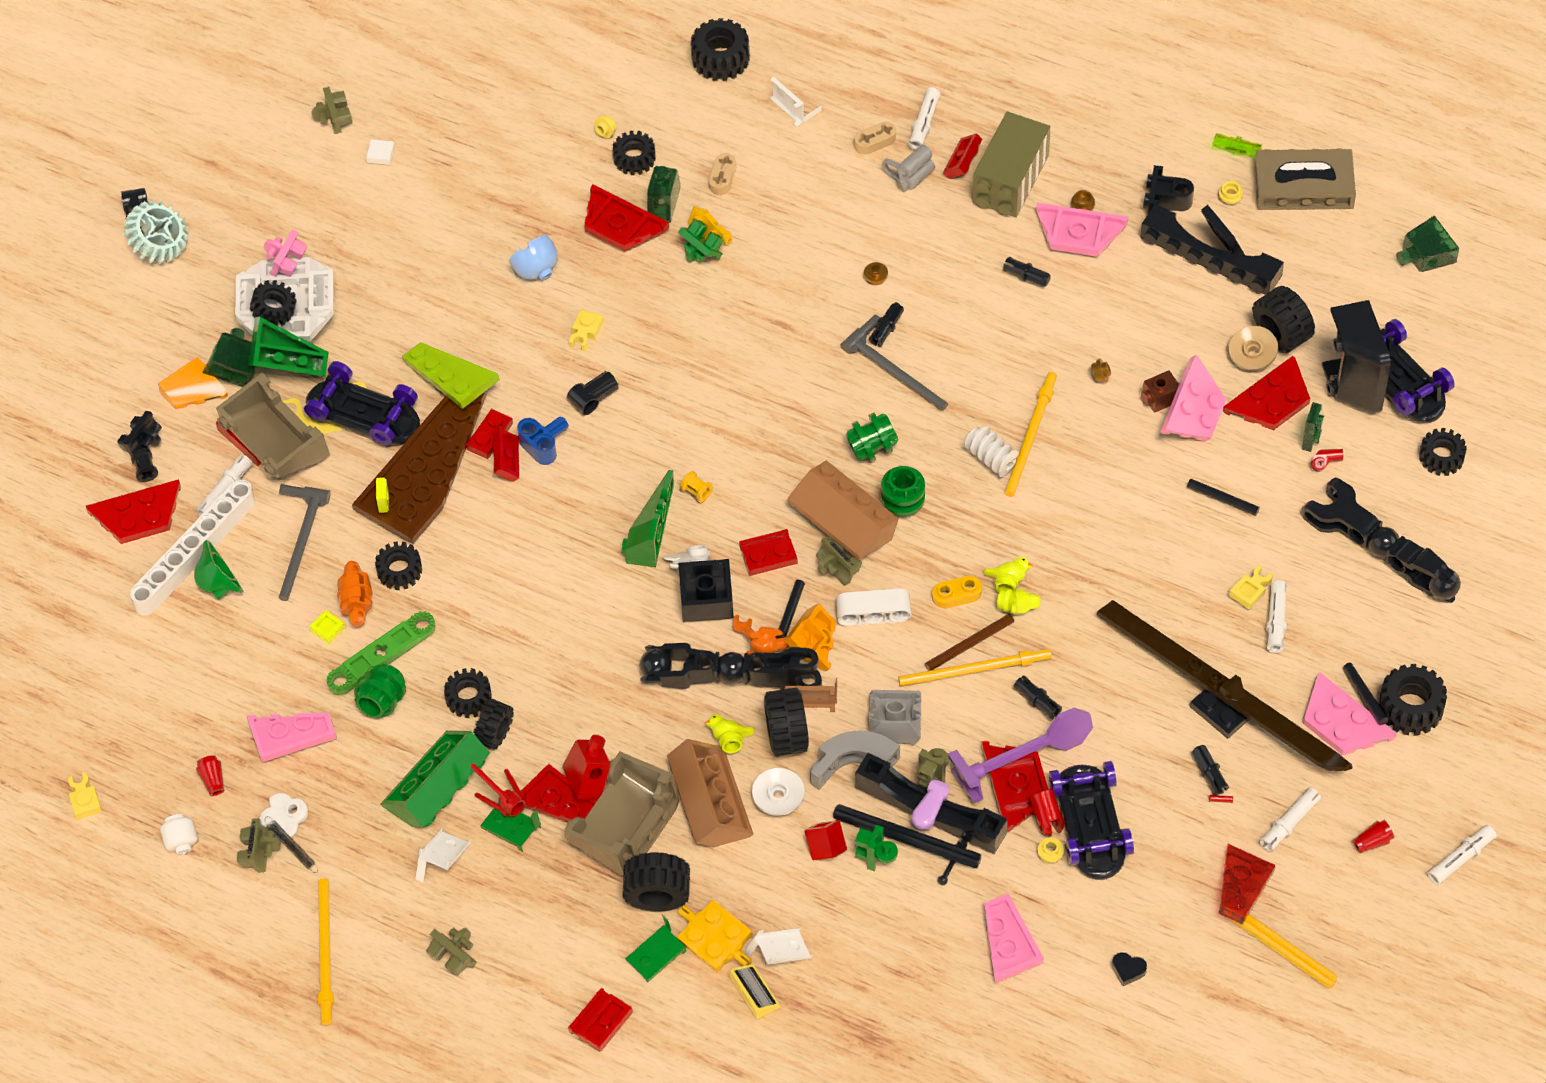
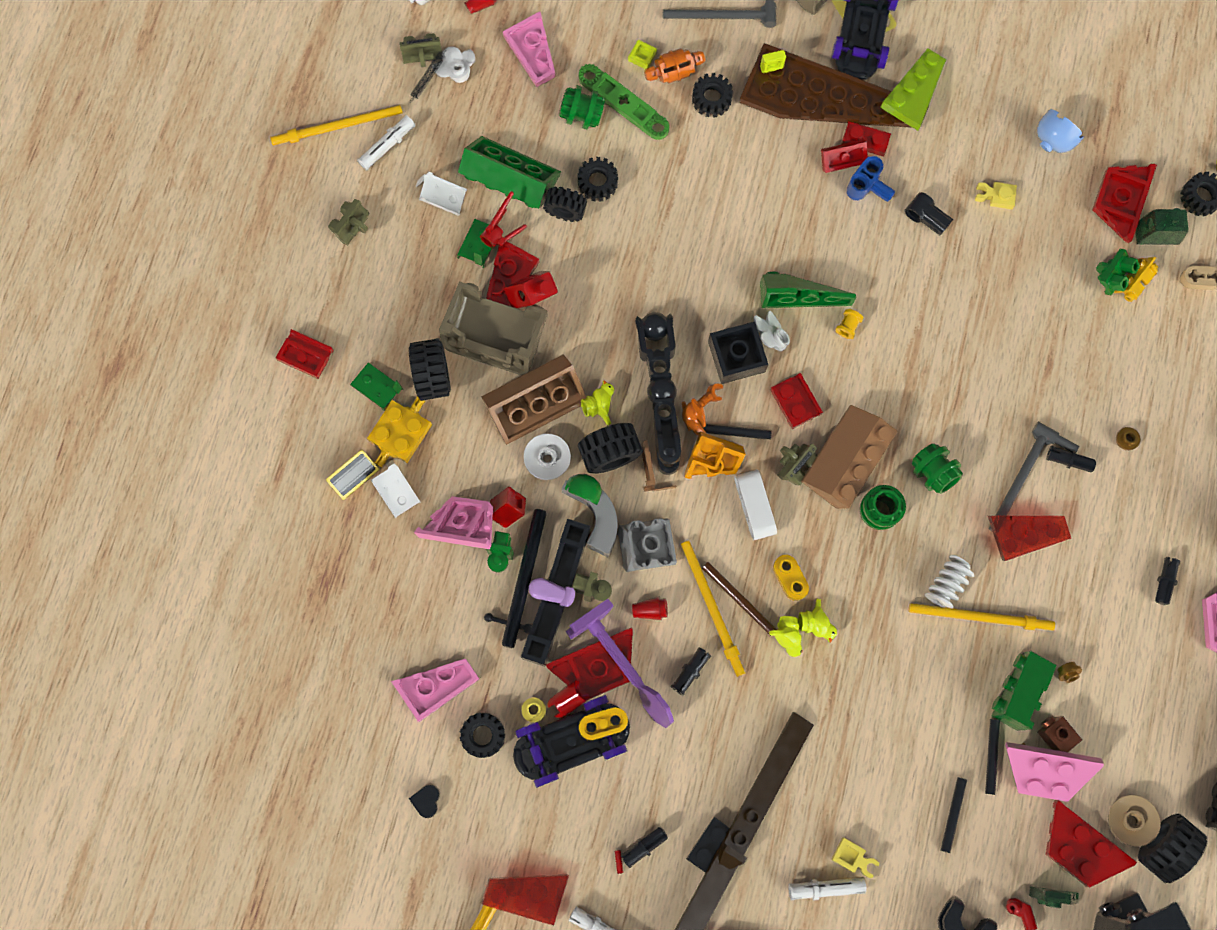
camera: 75 degrees right, 20 degrees up
(357, 891) = (393, 136): none -> white pin
(825, 746) = (584, 487): none -> green hair
(836, 880) = (461, 522): none -> bright pink wing
(955, 376) = (1027, 533): none -> clear red wing
(965, 721) = (651, 609): none -> red cone
(1073, 888) = (471, 724): none -> black tyre
(1081, 773) = (603, 724): none -> yellow plate
(1113, 410) = (1023, 691): none -> green wedge
(1172, 453) = (992, 757): none -> black bar

